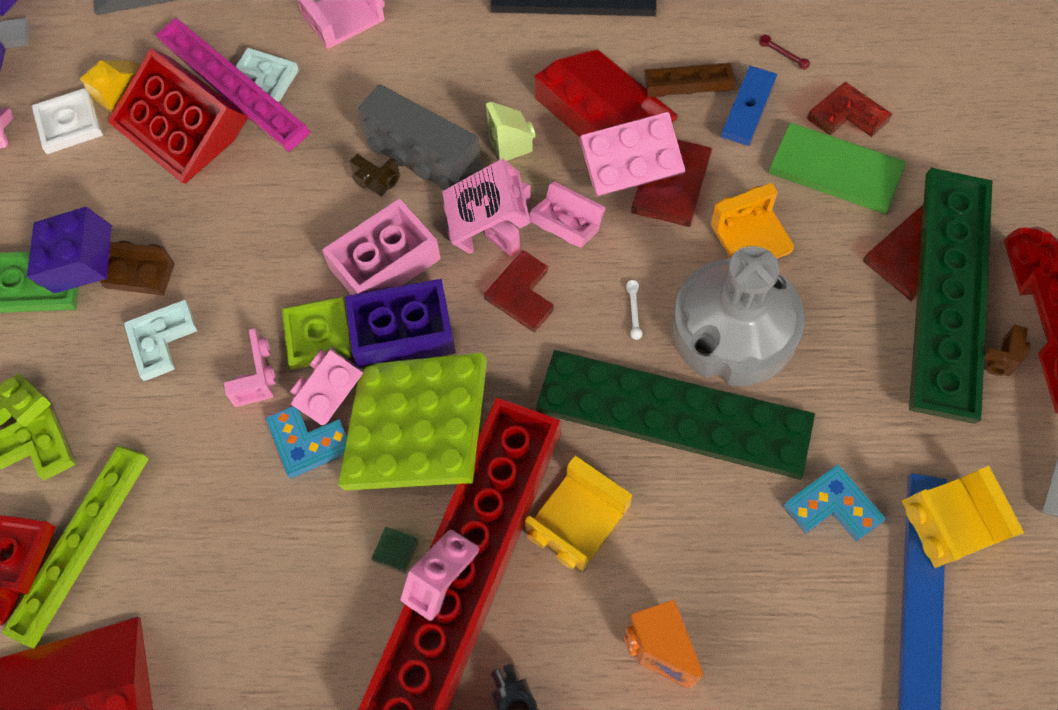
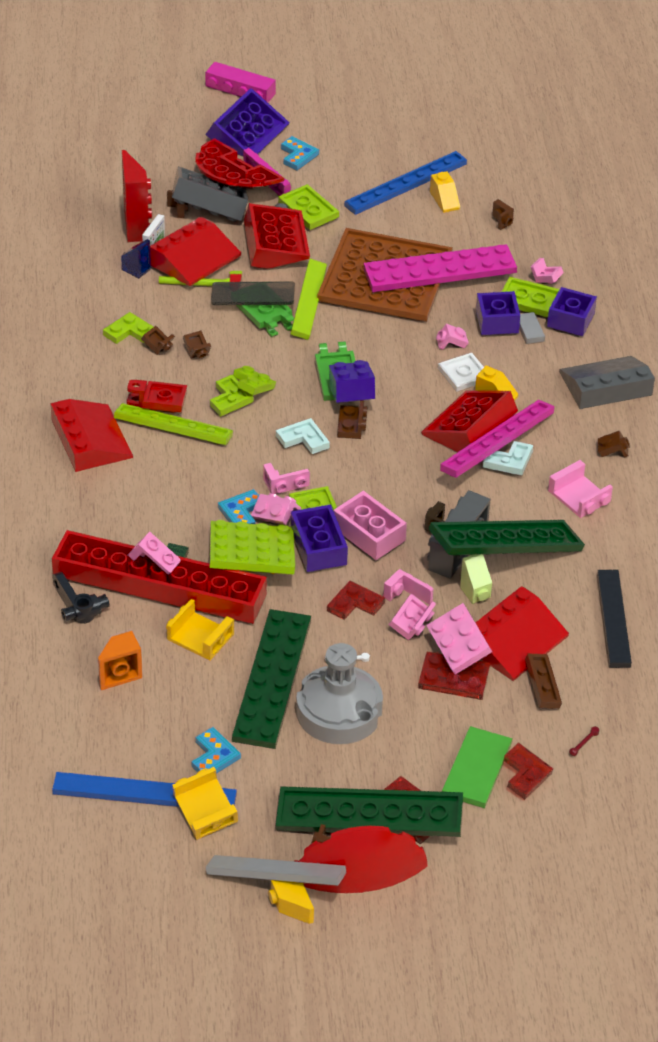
camera: 80 degrees right, 20 degrees down
(456, 81) = (505, 537): none -> dark green plate
(484, 201) = (410, 568): bright pink panel -> none
(749, 105) = (524, 715): blue tile -> none
(751, 222) = (414, 714): light orange bracket -> none

